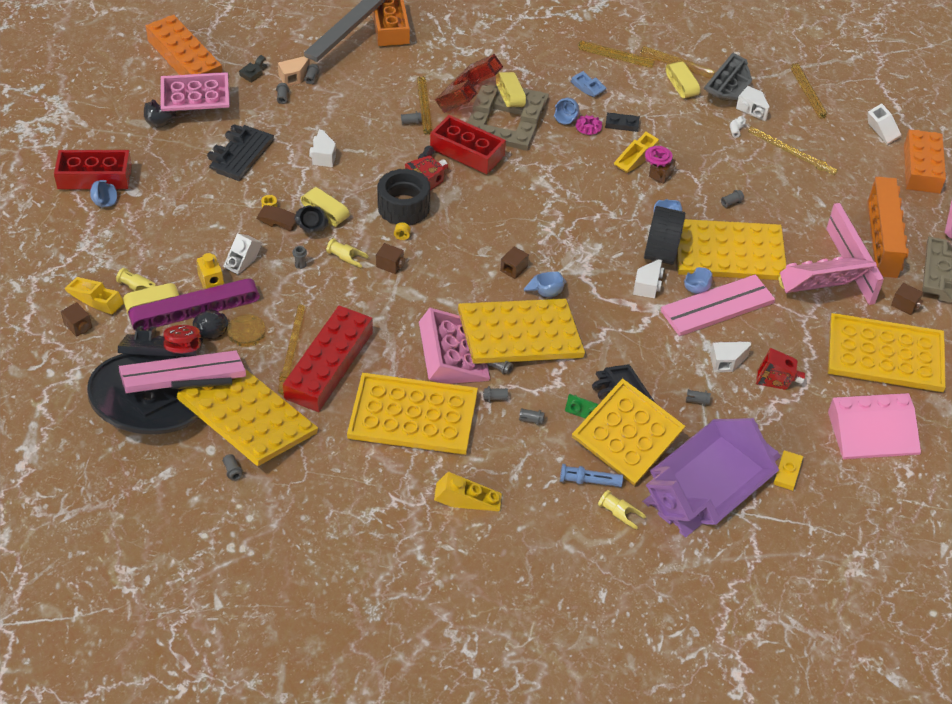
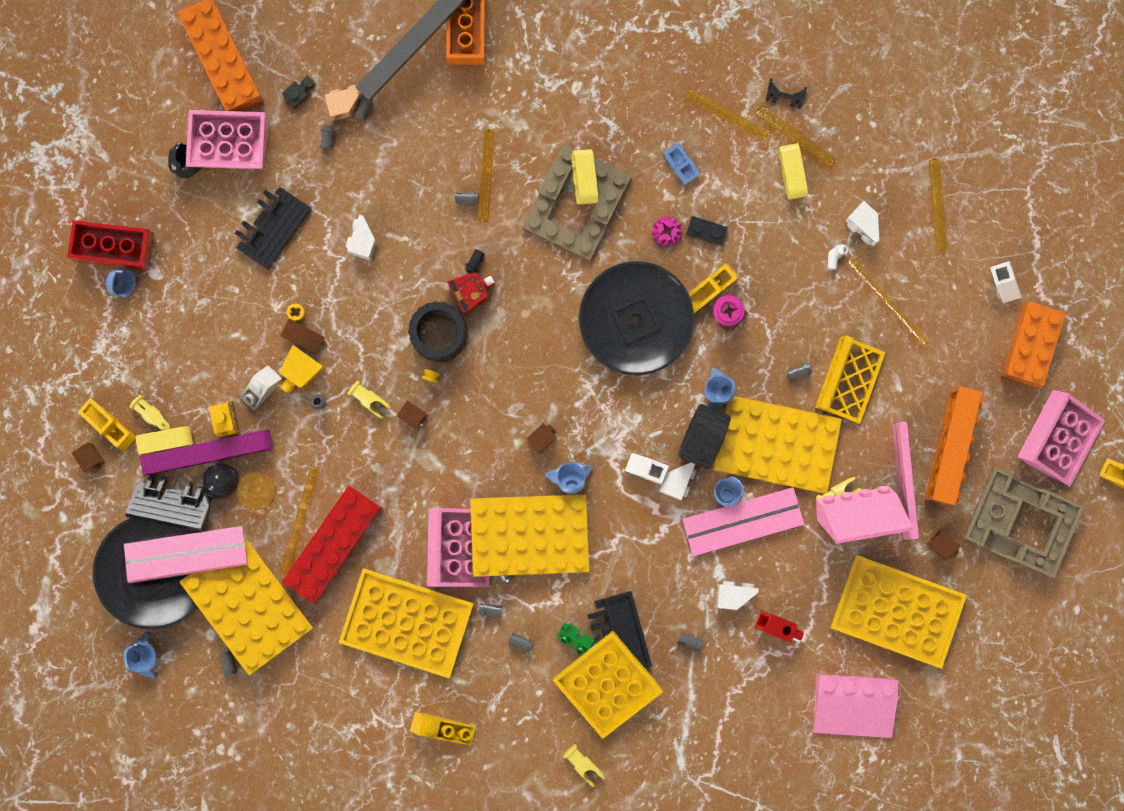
camera: 15 degrees right, 35 degrees up
(140, 468) = (141, 656): none -> medium blue piece
(181, 339) = (187, 516): red head -> none
(201, 383) = (202, 575): black bar -> none
(279, 237) = (299, 370): none -> yellow torso
(311, 219) = (335, 352): black hair -> none
(334, 210) = (354, 328): light yellow beam -> none
(462, 88) = (546, 140): clear red arch -> none
(468, 144) = (521, 255): red brick -> none
(566, 111) = (644, 212): medium blue hair -> none
(581, 475) = (553, 721): medium blue pin -> none
(600, 167) = (642, 291): none -> black dish
(619, 271) = (646, 468): none -> white slope
(663, 41) = (794, 97): none -> black piece
(711, 474) = (680, 739): medium lavender panel -> none
(730, 79) = (845, 187): dark grey wedge -> none
(765, 196) = (835, 373): none -> yellow fence
(788, 470) = (754, 741): yellow plate -> none

